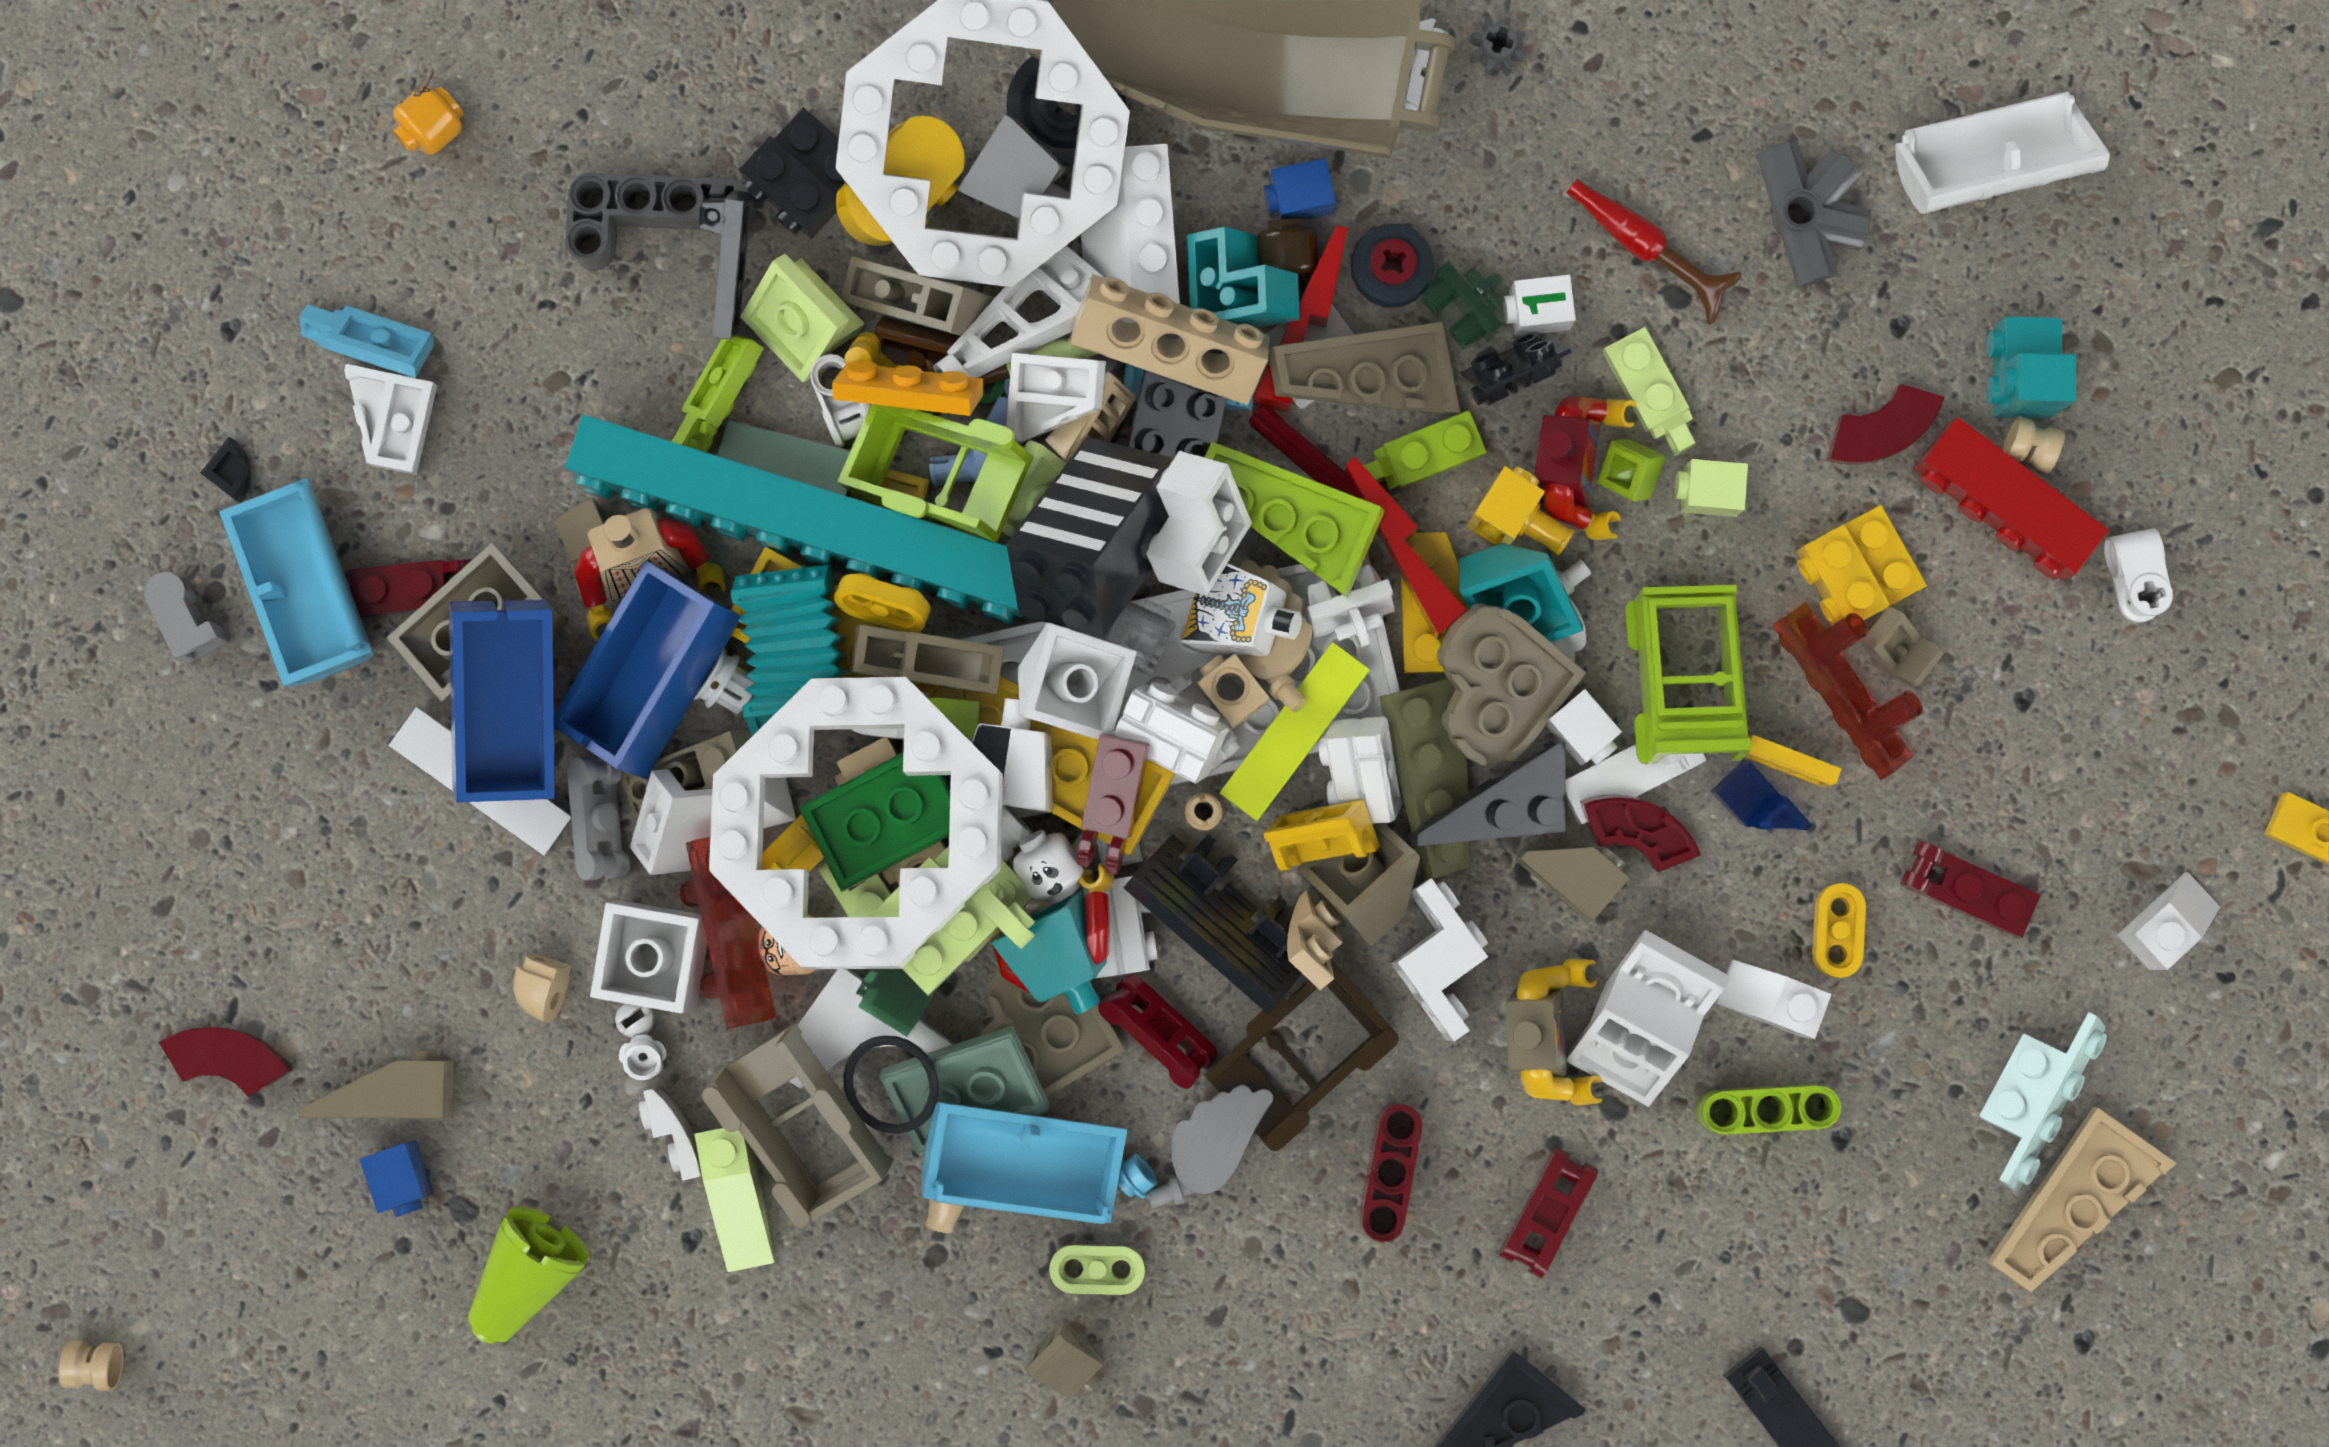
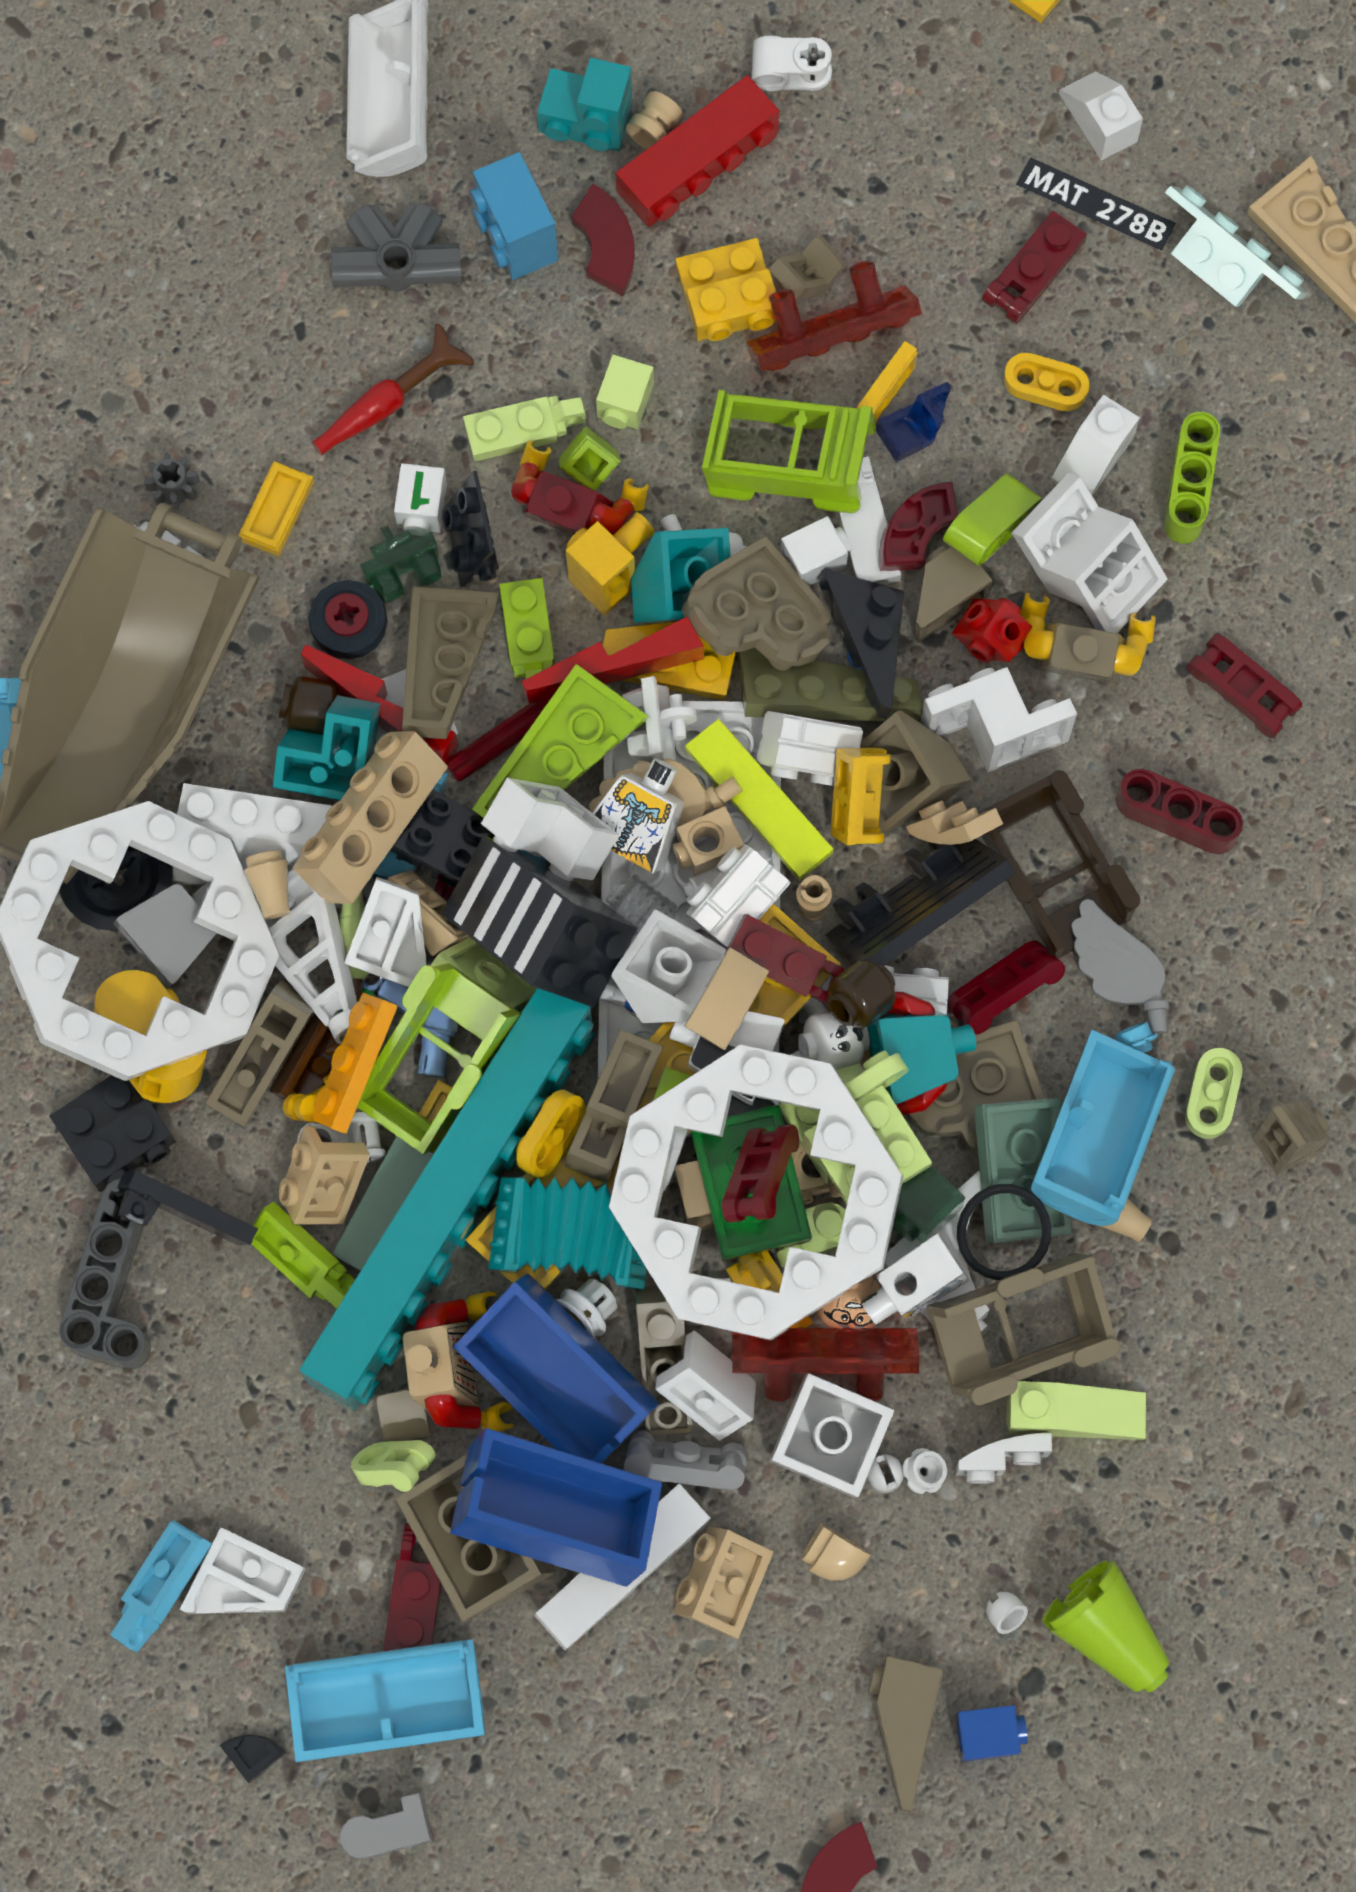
camera: 75 degrees left, 10 degrees down
(489, 882) = (722, 1581): none -> tan bracket
(521, 1169) = (1006, 1612): none -> white hinge
(533, 519) = (392, 1463): none -> yellowish green plate
(789, 389) = (322, 1179): none -> tan bracket
(799, 315) = (248, 1162): yellowish green bracket -> none
(824, 1019) = (935, 1273): none -> white torso
(877, 821) = (759, 1172): none -> dark red plate
(1048, 746) = (726, 998): none -> tan slope
(1081, 257) = (269, 882): none -> tan cone
(1089, 883) = (861, 994): none -> dark brown head
(1300, 191) = (257, 682): blue brick -> none
(1497, 162) = (276, 508): none -> yellow tile
(1539, 933) = (992, 630): none -> red brick
(1661, 906) = (991, 519): none -> lime beam
(1885, 317) = (514, 216): none -> dark azure brick
(2063, 940) = (1096, 204): none -> black sticker

